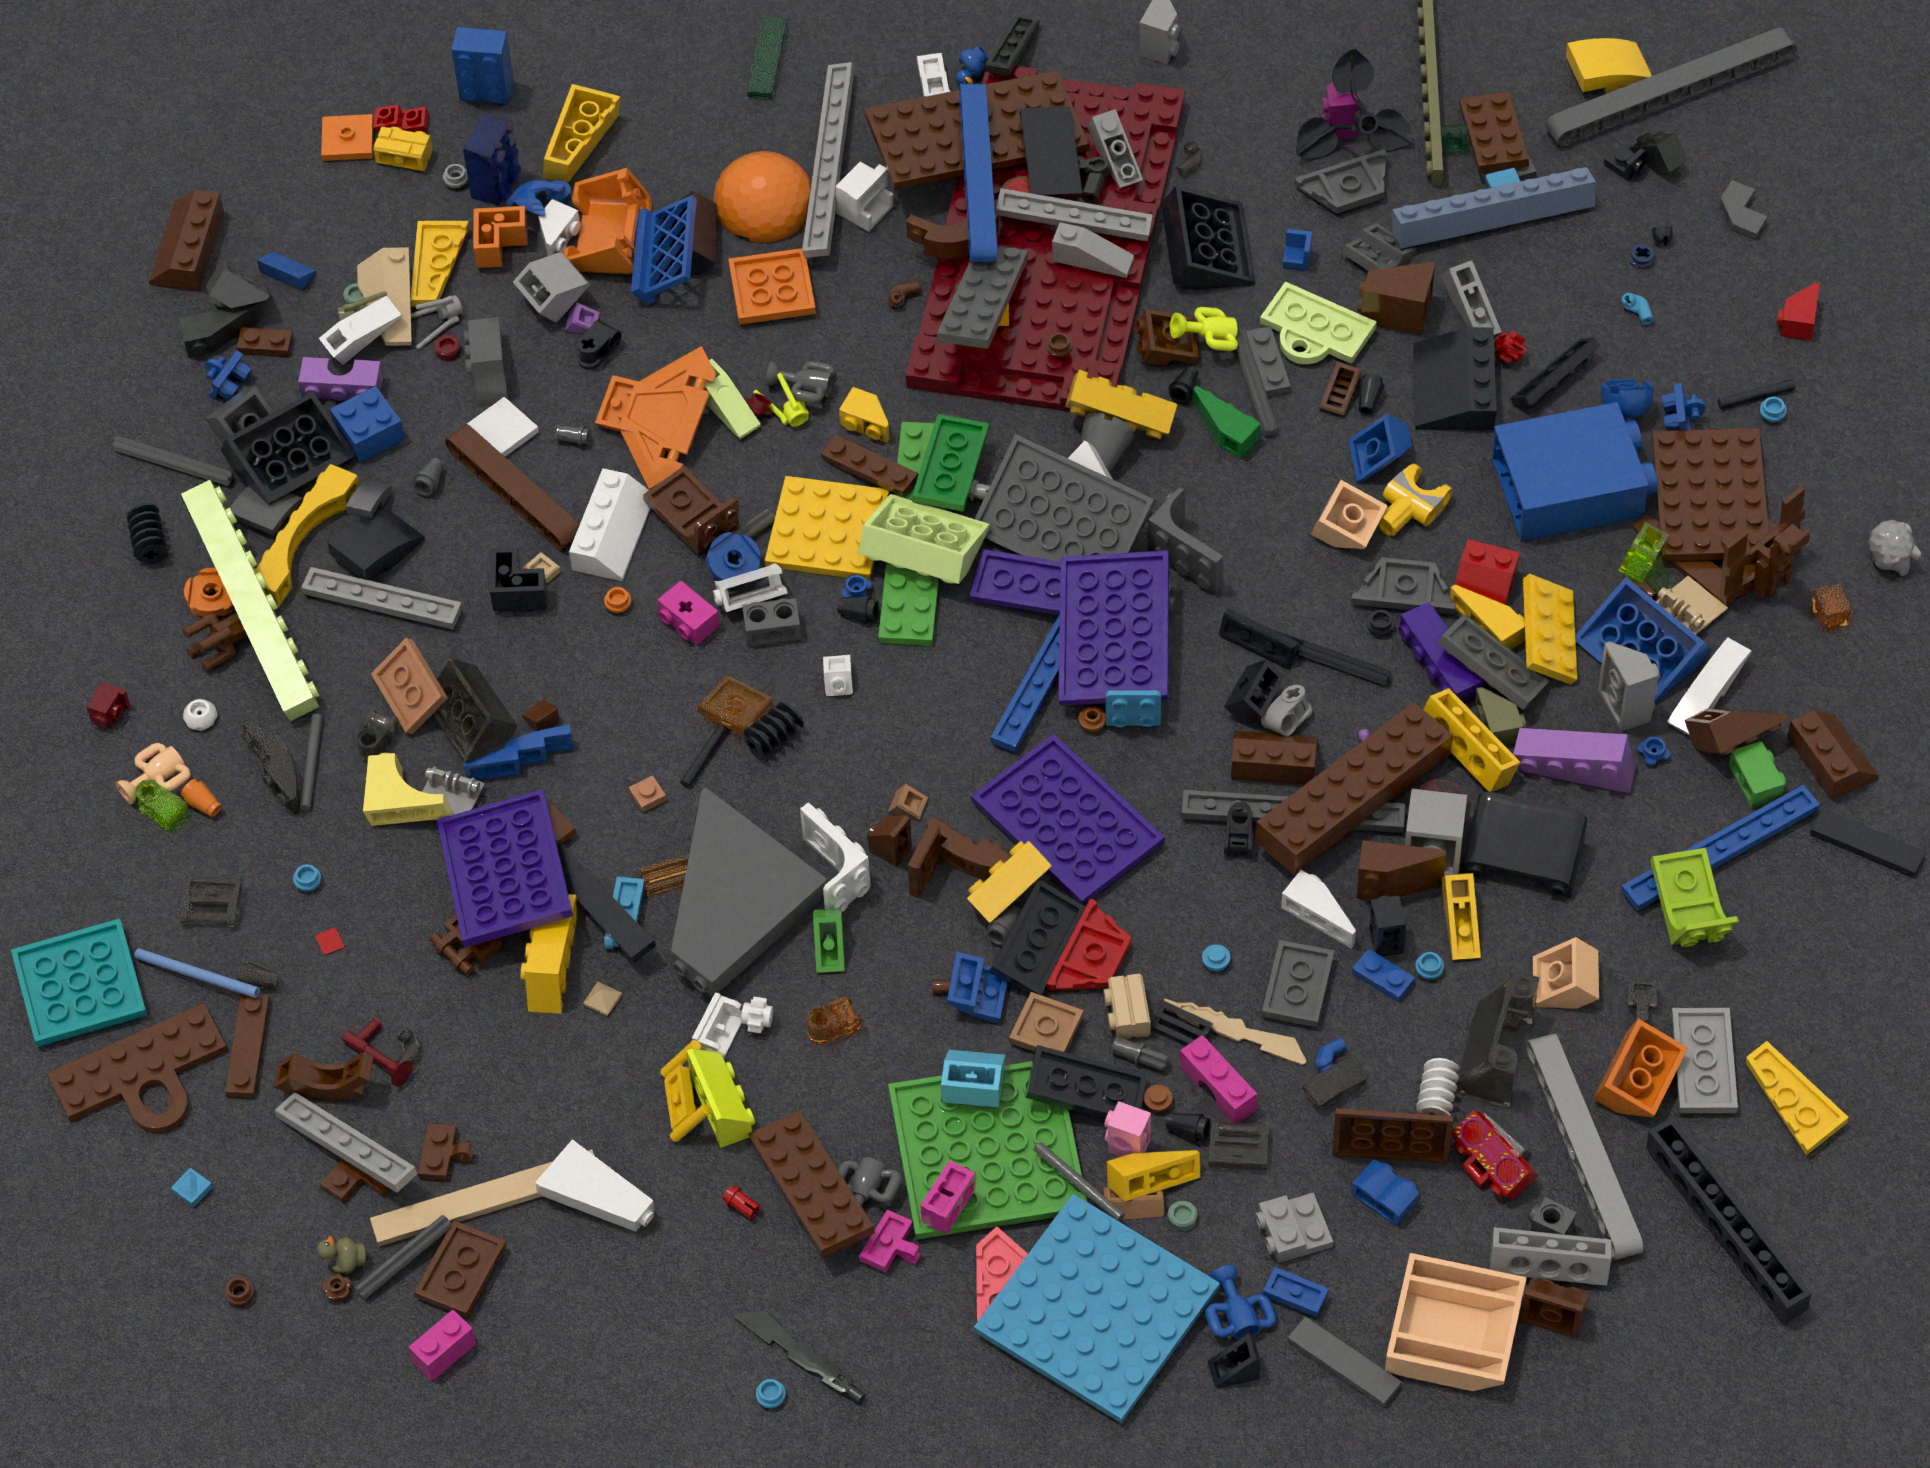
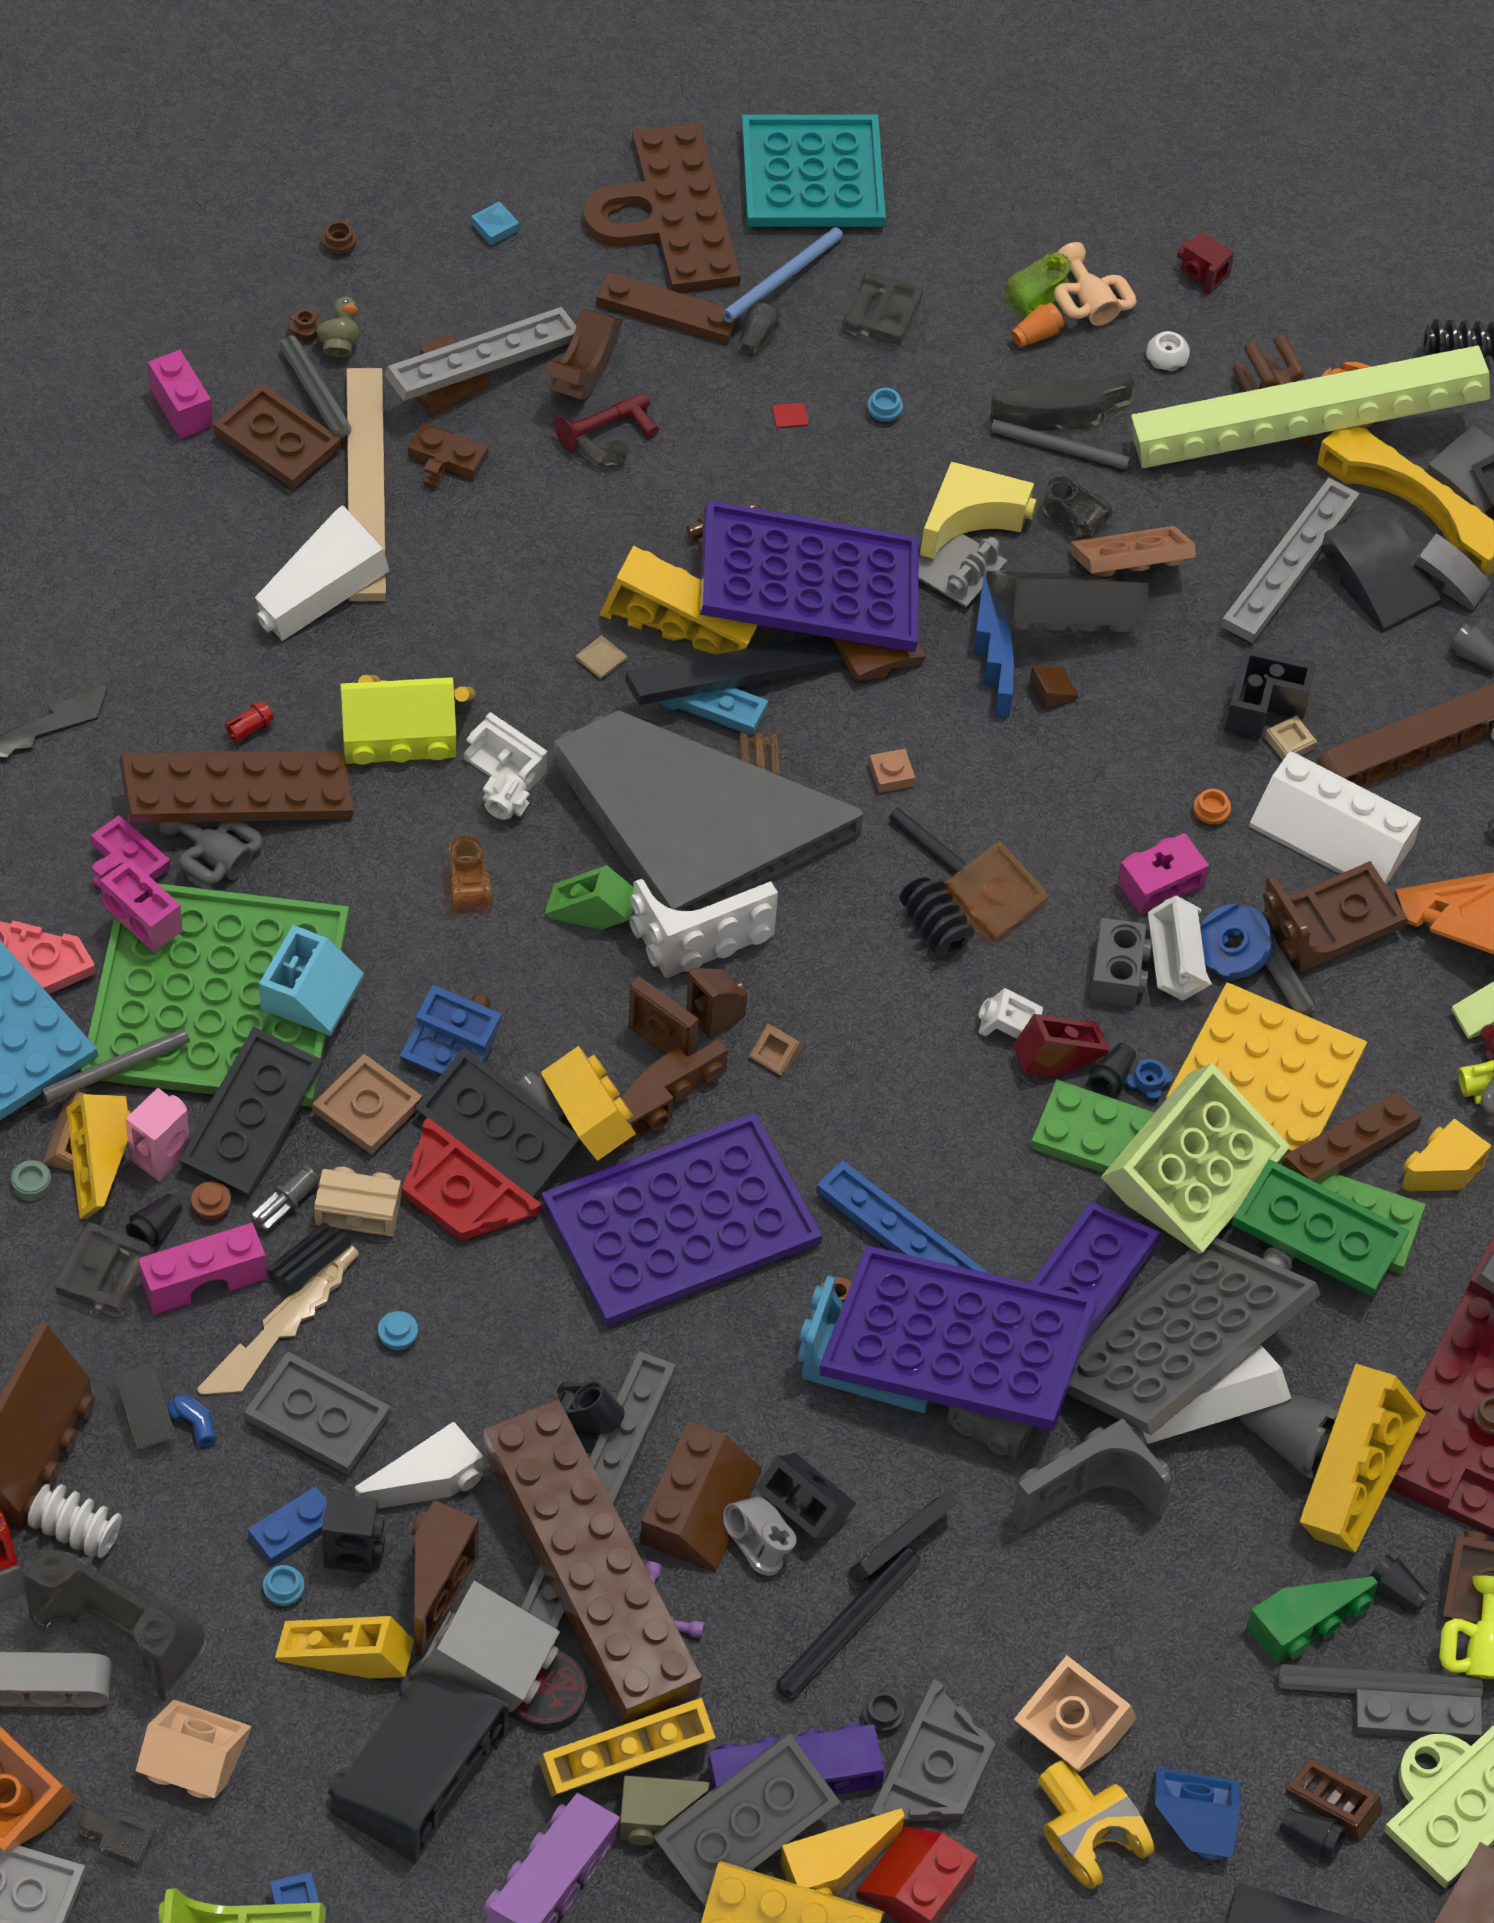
camera: 100 degrees right, 0 degrees up
(855, 636) = (1058, 1045): none -> dark red slope

